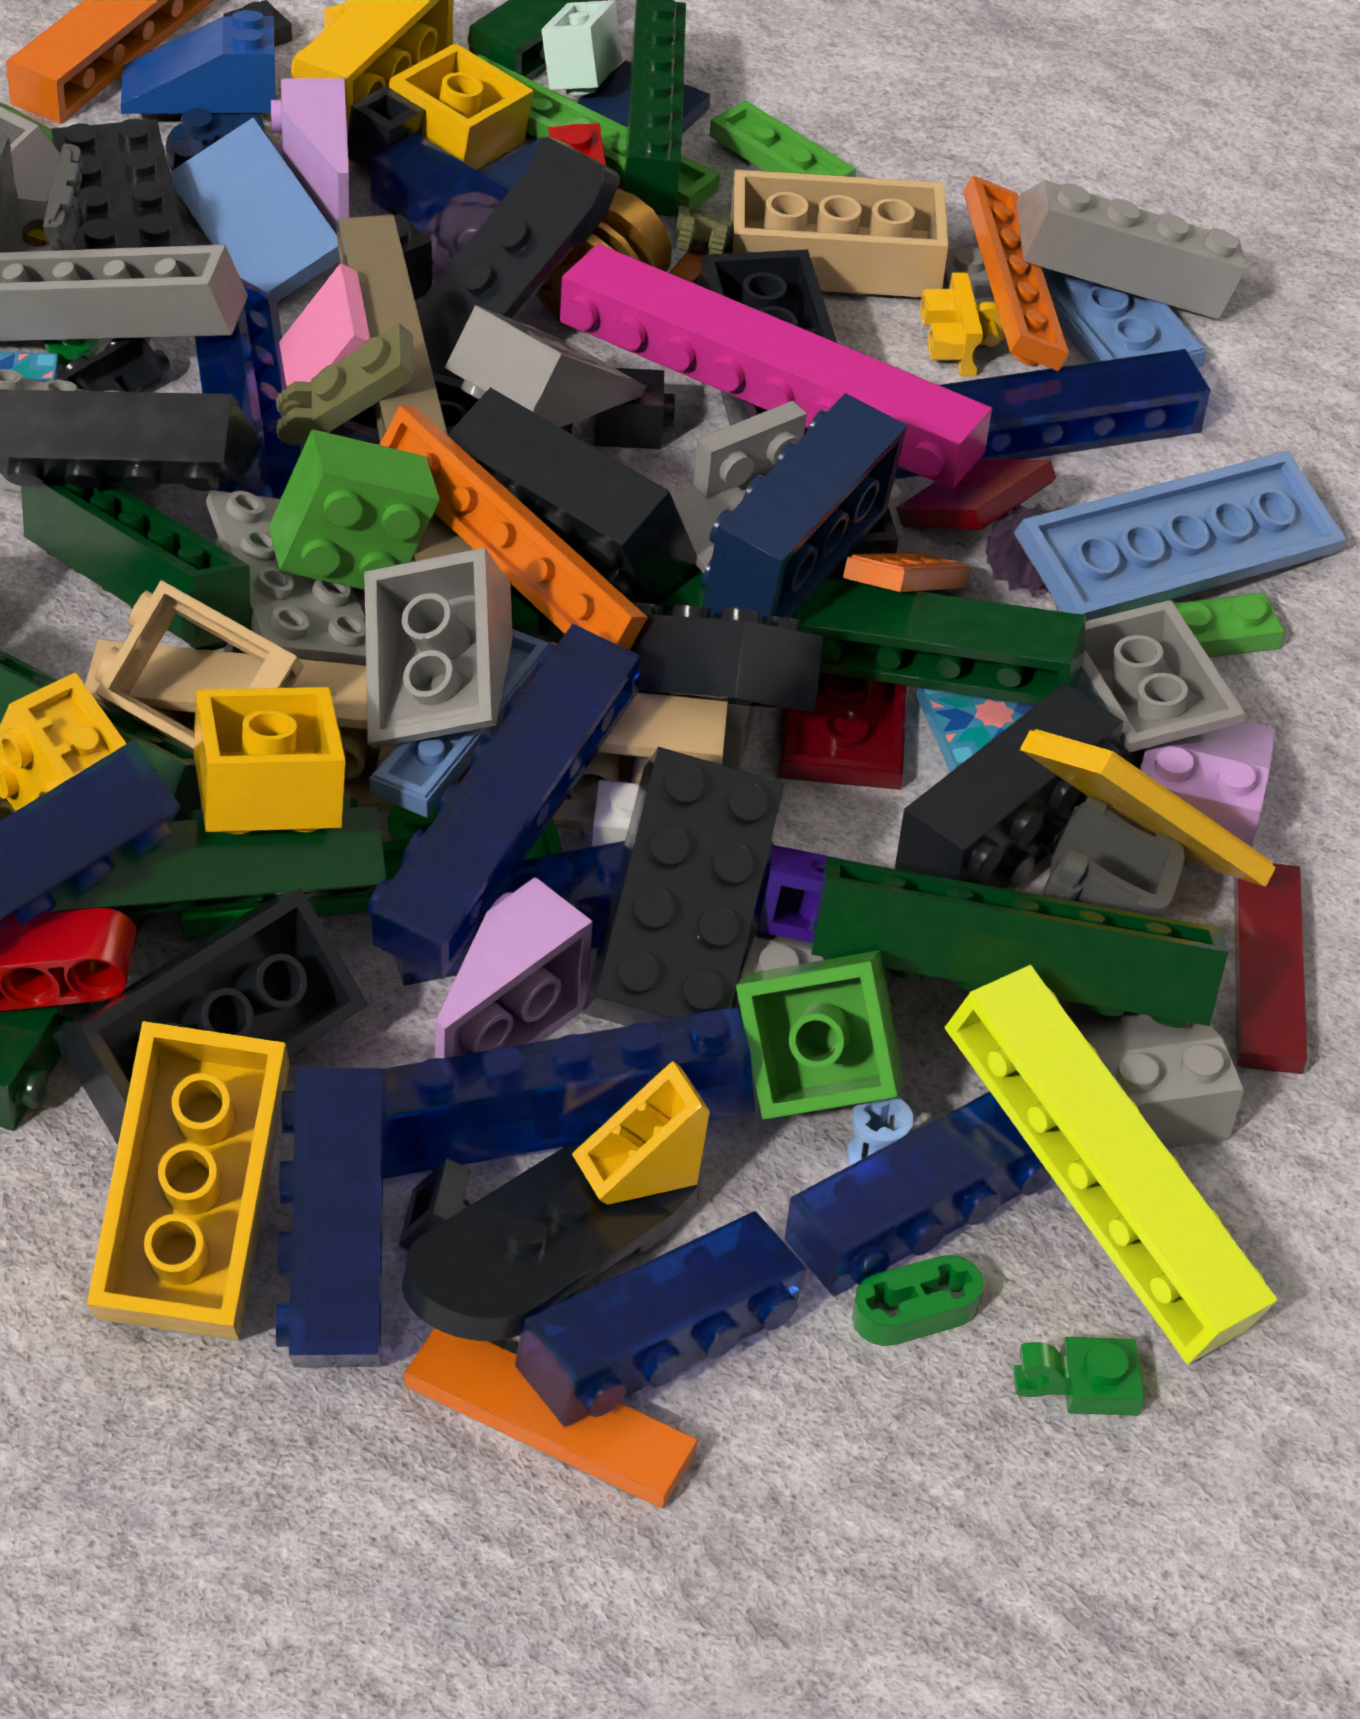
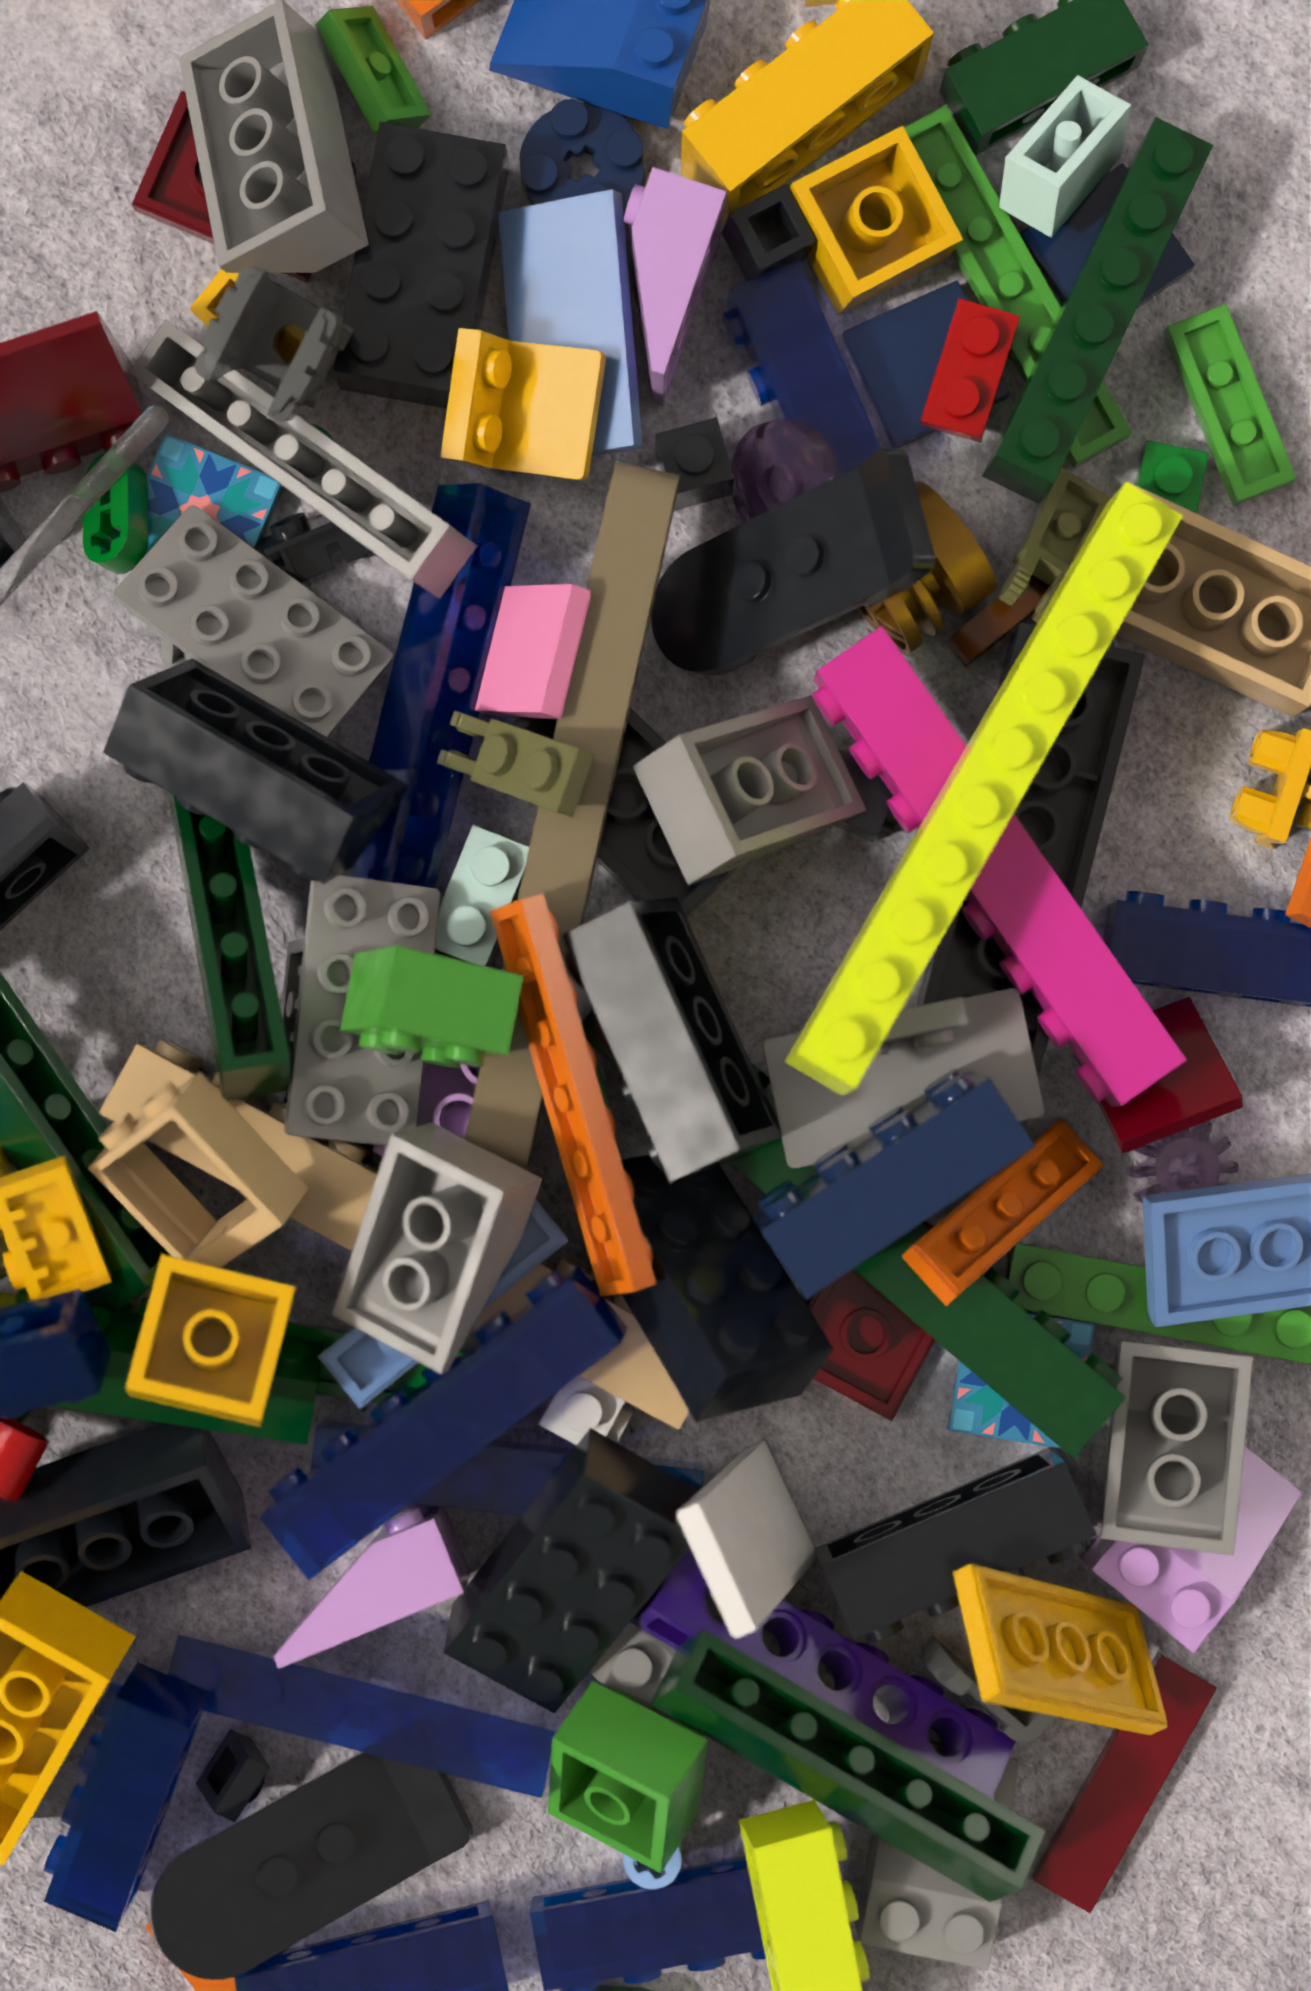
camera: 25 degrees right, 40 degrees up
(262, 240) = (523, 406): none -> yellow bracket
(649, 1142) = (420, 1815): yellow slope -> none
(731, 292) = (983, 790): none -> neon yellow brick
(828, 792) = (747, 1538): none -> white tile

